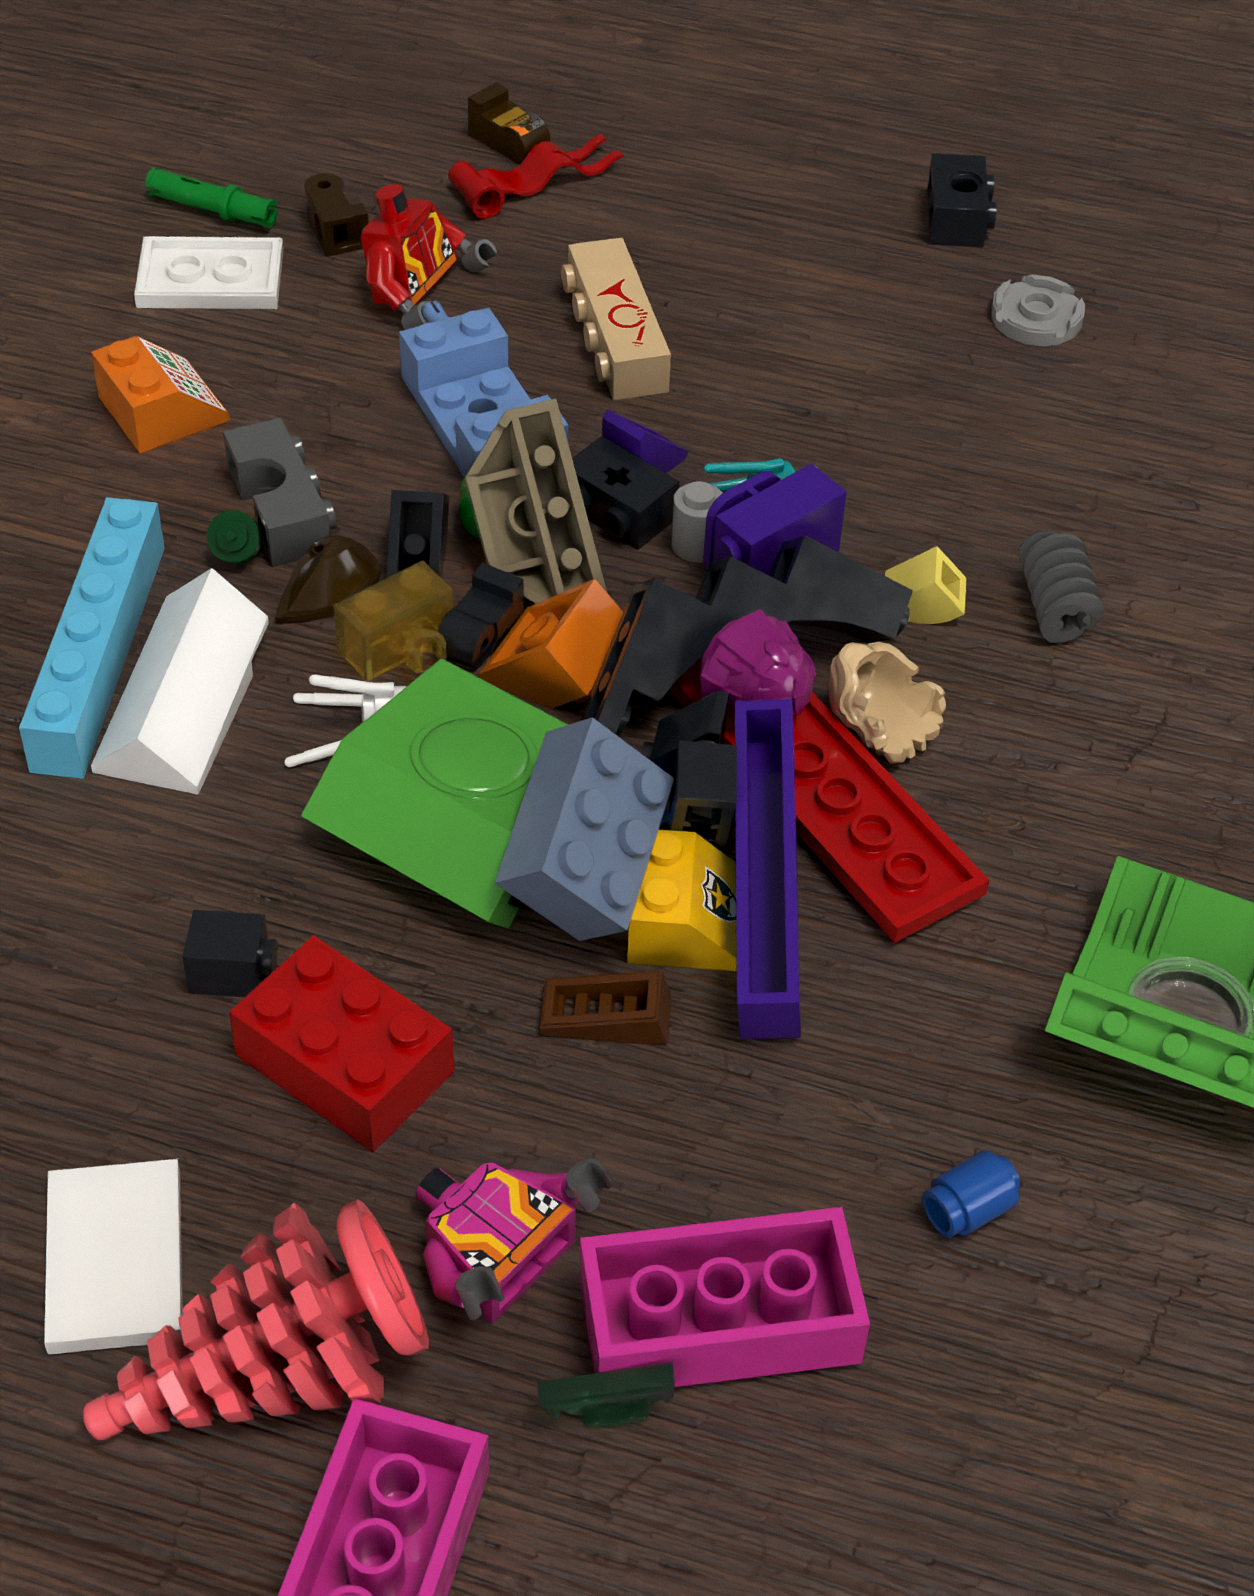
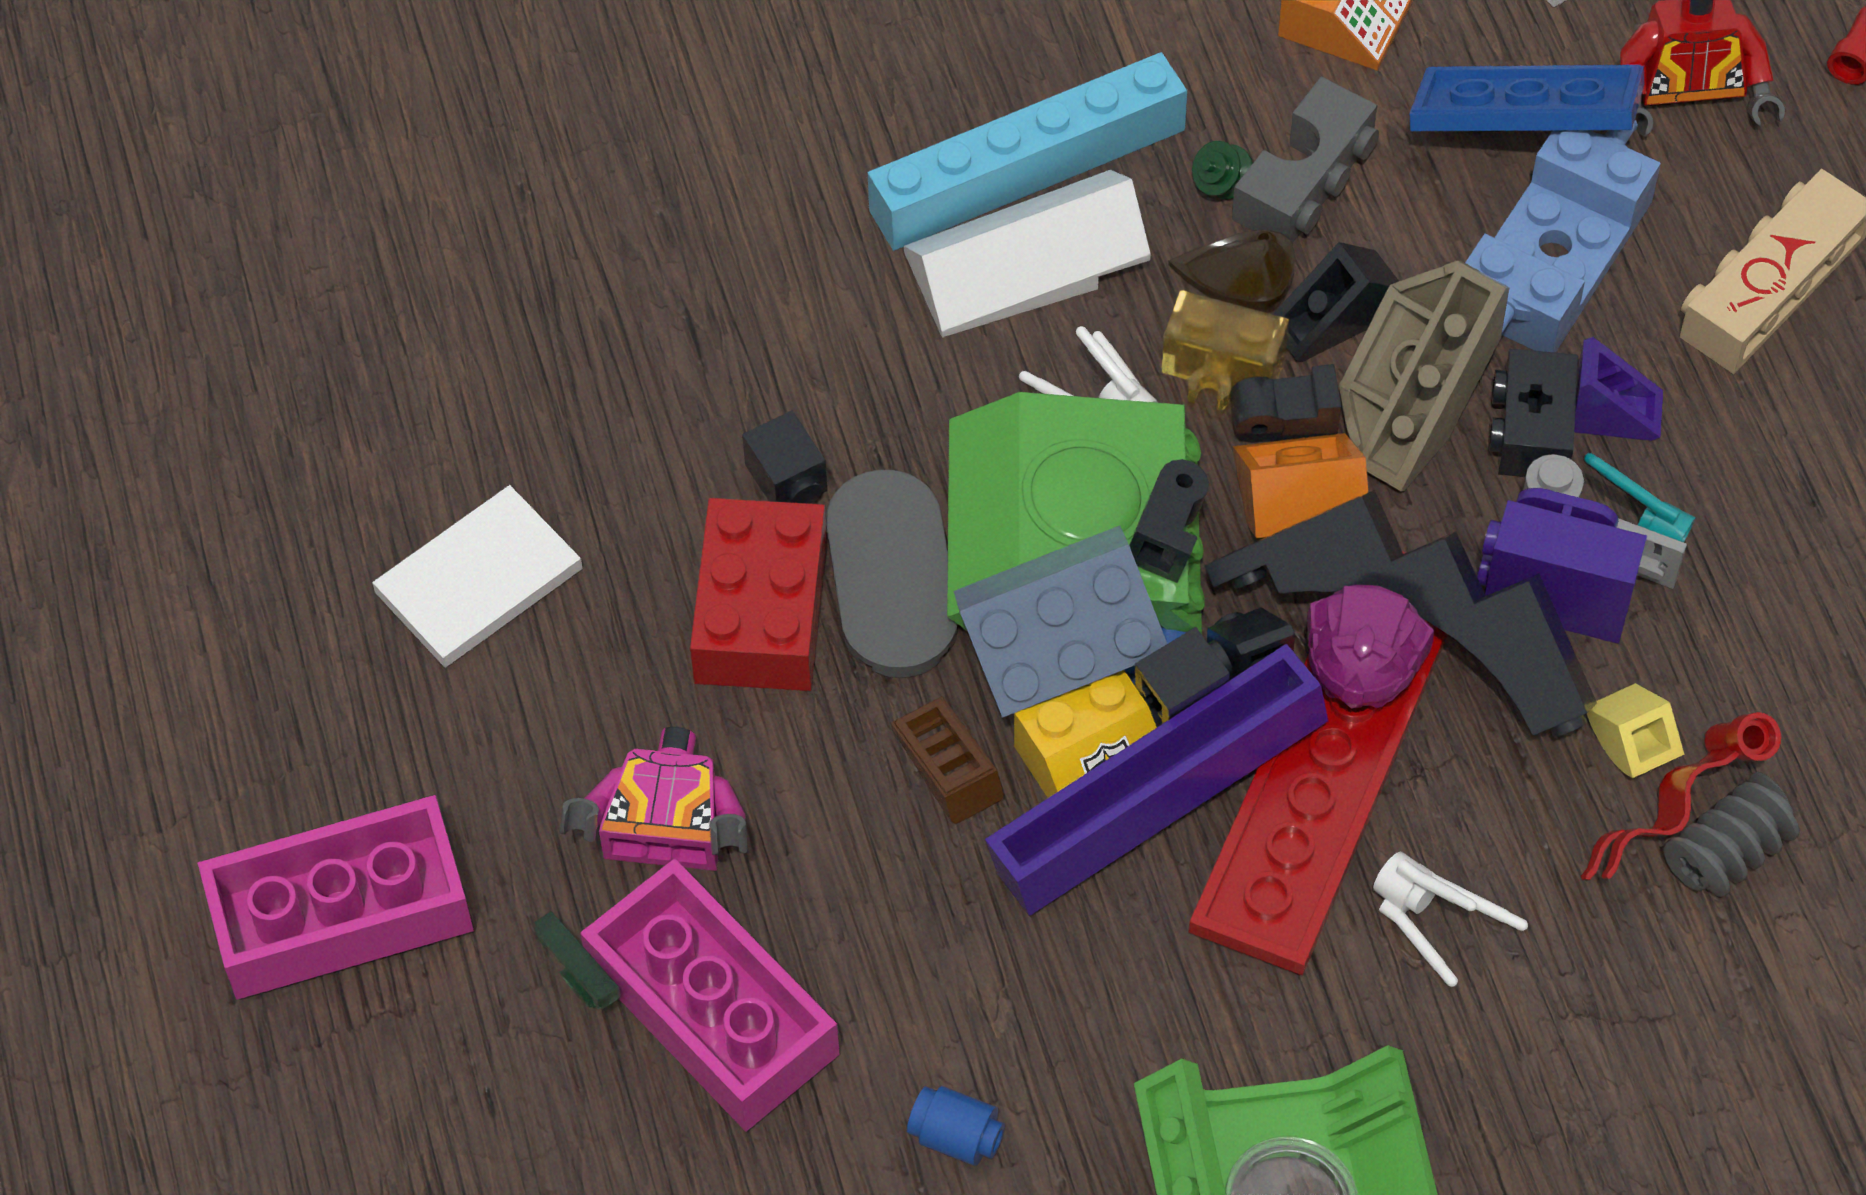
camera: 60 degrees right, 10 degrees up
(290, 1323) = (475, 721): coral plant -> none
(360, 342) = (1528, 98): none -> blue tile
(409, 943) = (890, 572): none -> dark grey tile
(542, 704) = (1173, 504): none -> black leg
(880, 702) = (1444, 769): tan hair -> none
(963, 781) = (1413, 887): none -> white plant
(999, 587) = (1746, 738): none -> red flag

